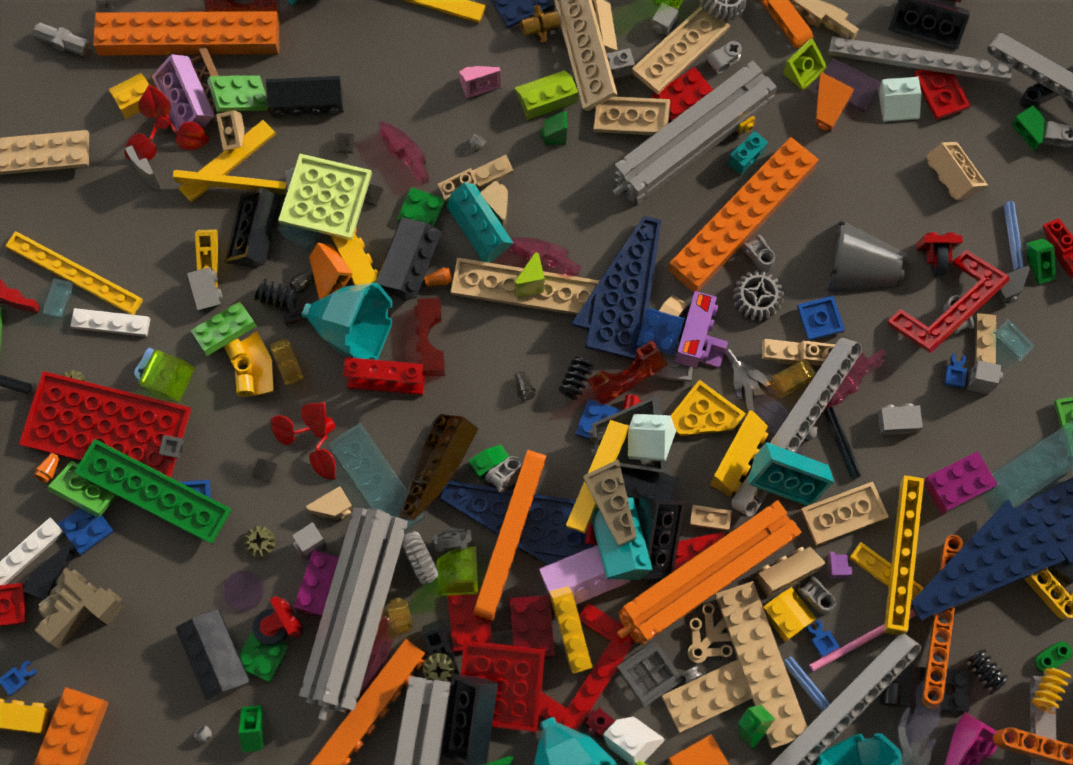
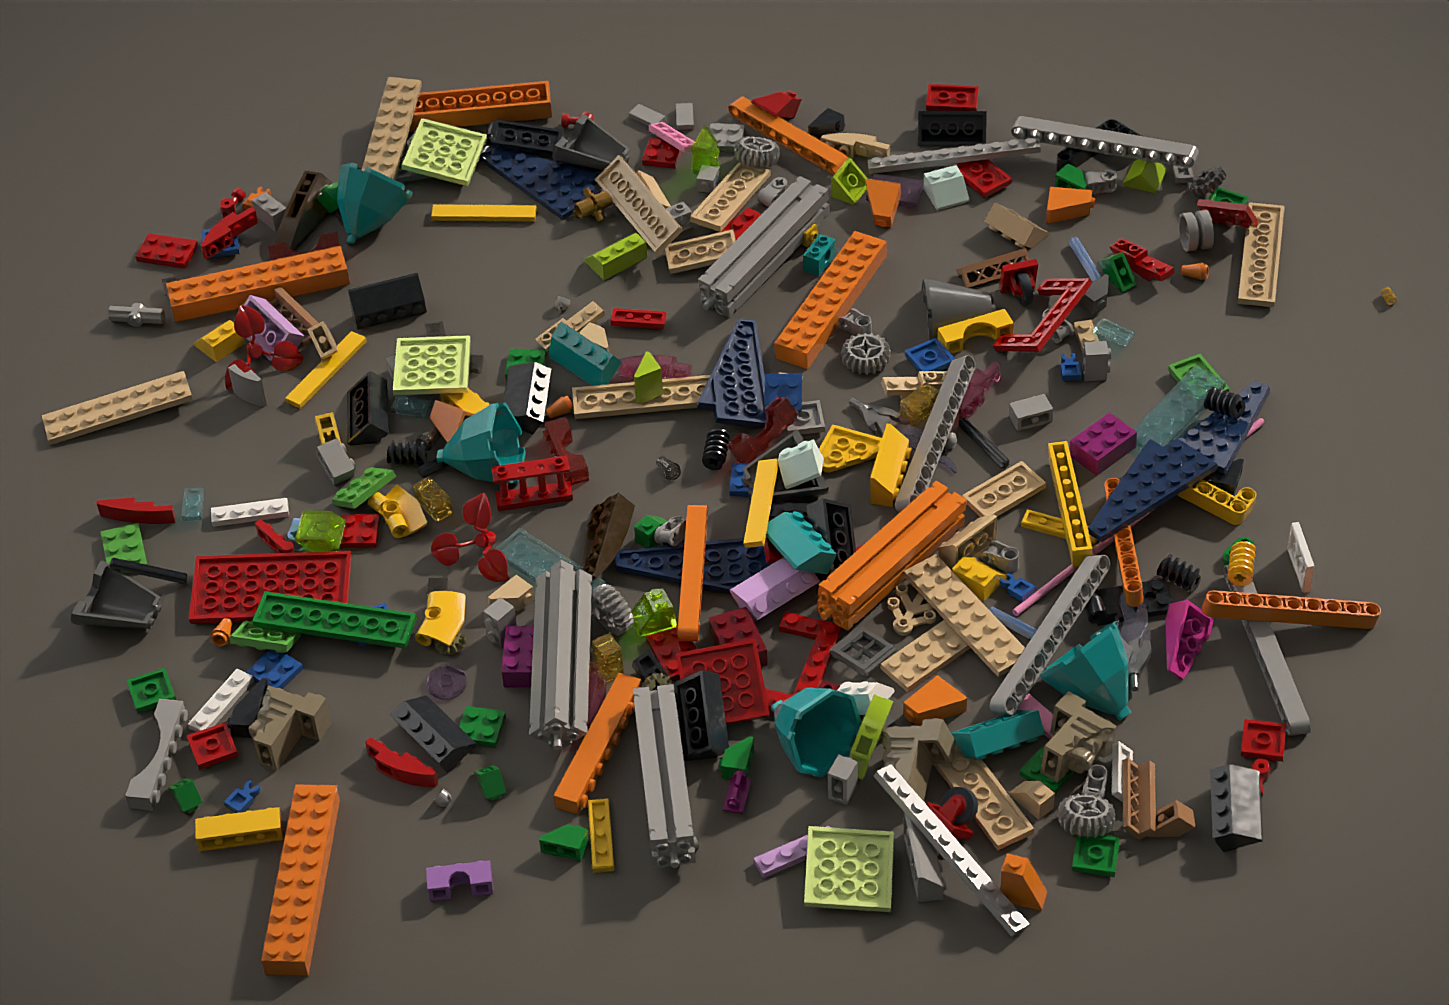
camera: 10 degrees left, 25 degrees down
(74, 273) = (212, 485): yellow tile -> none
(124, 370) = (272, 539): none -> red plate
(171, 446) = (342, 581): dark grey plate -> none
(176, 689) = (401, 768): none -> red slope
(209, 376) = (360, 531): none -> red plate
(230, 182) = (329, 380): yellow tile -> none
(238, 93) = (316, 311): bright green plate -> none
(255, 529) = (443, 618): none -> yellow panel
(274, 624) = (489, 690): plate -> none
(405, 147) = (492, 320): clear pink slope -> none
(451, 538) = (637, 589): dark grey plate -> none
(479, 80) = (550, 256): bright pink slope -> none
(546, 184) = (638, 318): none -> red plate
(555, 129) = (633, 275): green slope -> none
(570, 629) = (775, 624): yellow brick -> none
(612, 501) = (778, 507): dark tan wing -> none
(691, 674) = (902, 640): light grey bush -> none
(696, 329) = (817, 386): medium lavender brick -> none
(710, 518) = (875, 522): tan plate -> none
(714, 352) = (839, 402): medium lavender panel -> none
(754, 725) = (974, 658): green slope -> none
(789, 474) = (935, 462): teal slope -> none
(838, 566) = (1014, 532): medium lavender panel -> none
(897, 295) = (989, 325): none -> yellow arch
(918, 211) = (1006, 258): none -> medium nougat fence
(1017, 155) = (1068, 204): none -> orange slope

